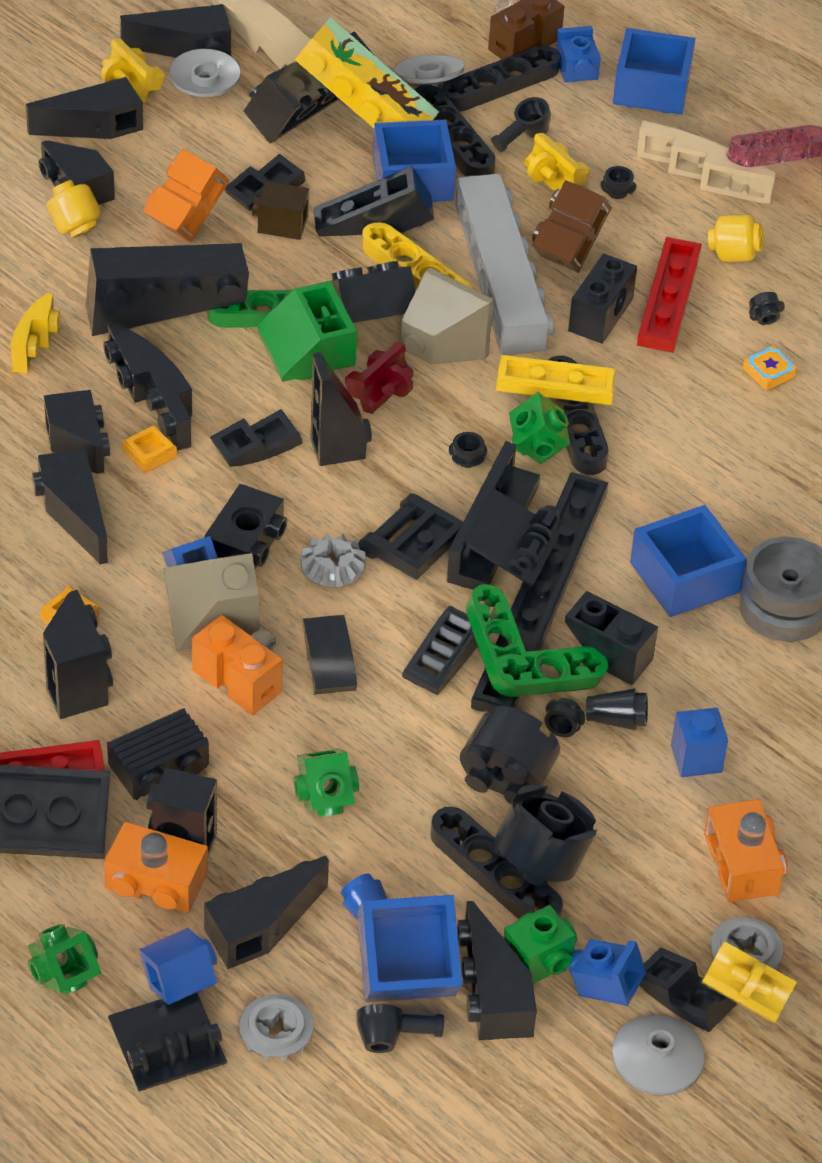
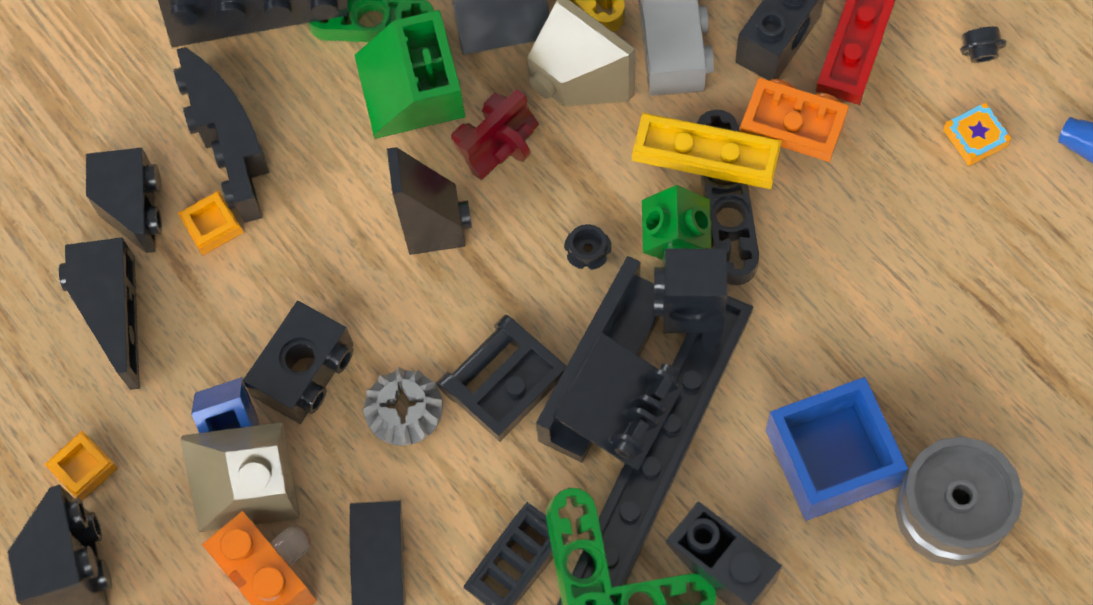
camera: 15 degrees right, 20 degrees up
(34, 332) = (100, 40): yellow slope -> none
(249, 444) = (333, 220): black slope -> none
(562, 458) = (691, 290): none -> black brick
(631, 356) = (798, 118): none -> orange bracket

